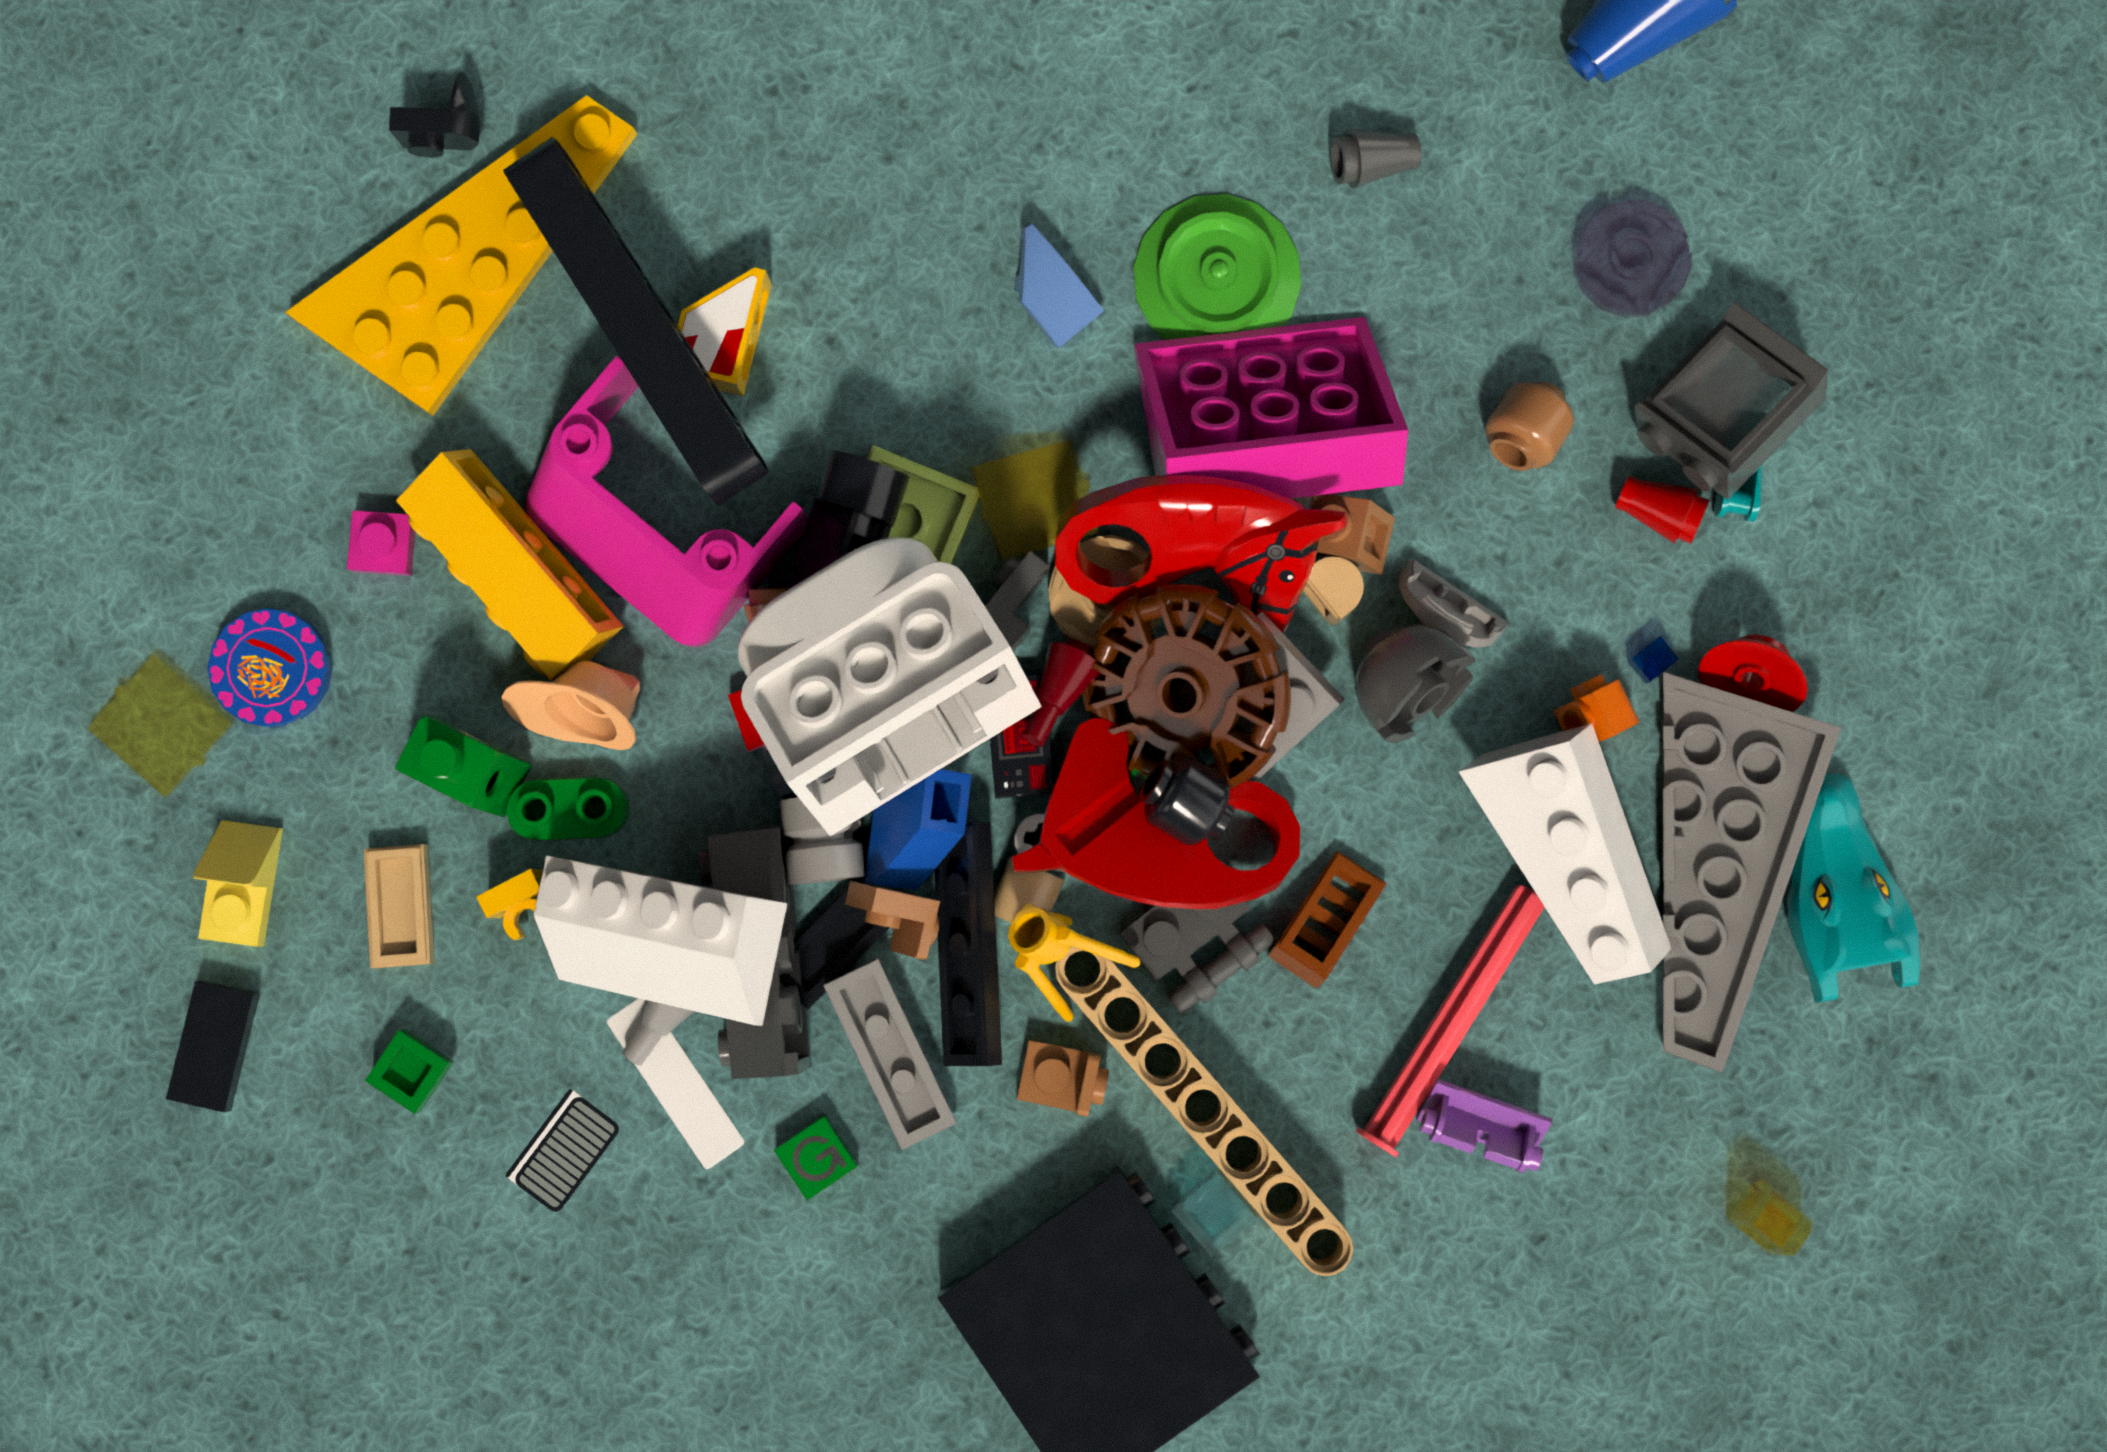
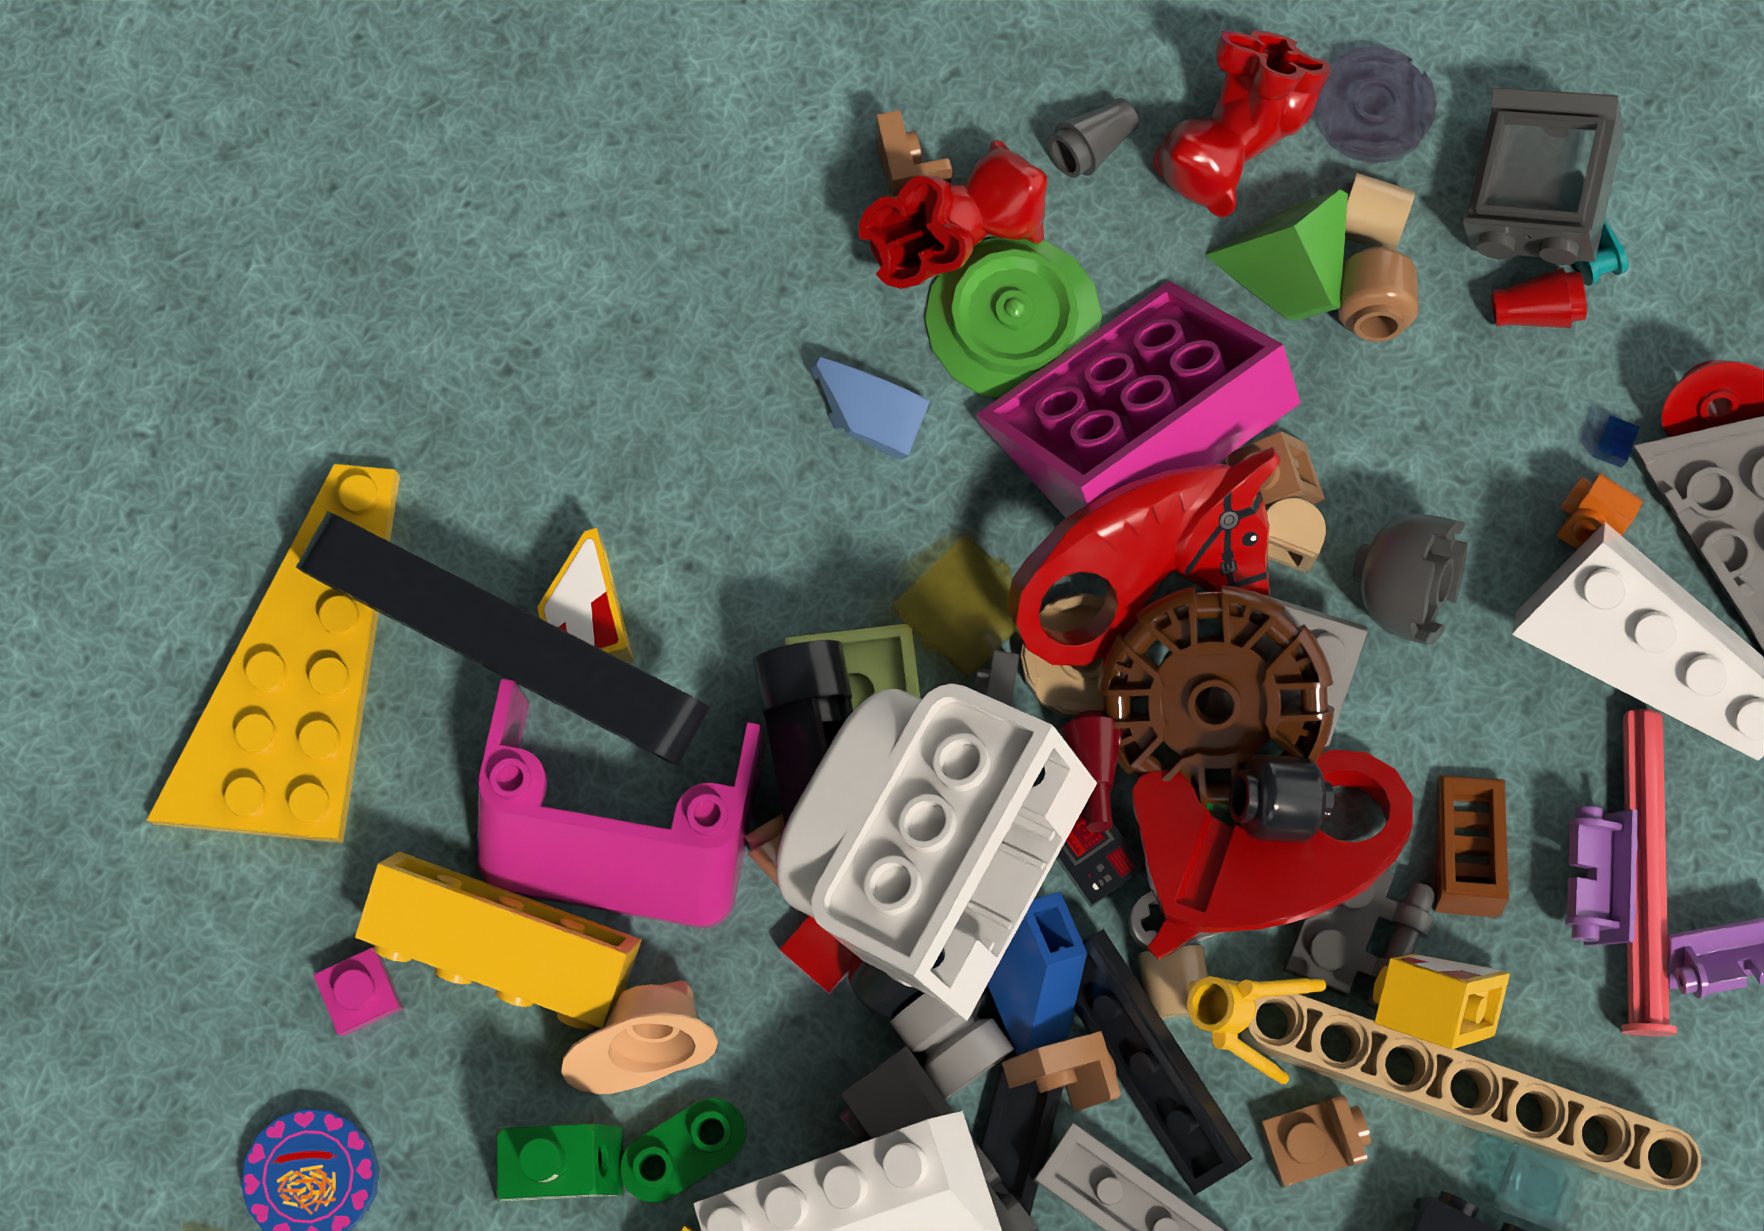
camera: 25 degrees left, 10 degrees down
(430, 131) = (204, 572): black plate -> none
(1186, 163) = (938, 224): none -> red animal
(1201, 81) = (902, 154): none -> medium nougat bracket
(1221, 1027) = (1440, 999): none -> yellow slope
(1401, 1027) = (1603, 904): none -> medium lavender hinge
(1448, 608) = (1403, 494): light grey plate -> none
(1478, 353) = (1292, 257): none -> bright green slope
(1534, 203) = (1263, 98): none -> red animal
(1572, 353) = (1377, 212): none -> tan brick

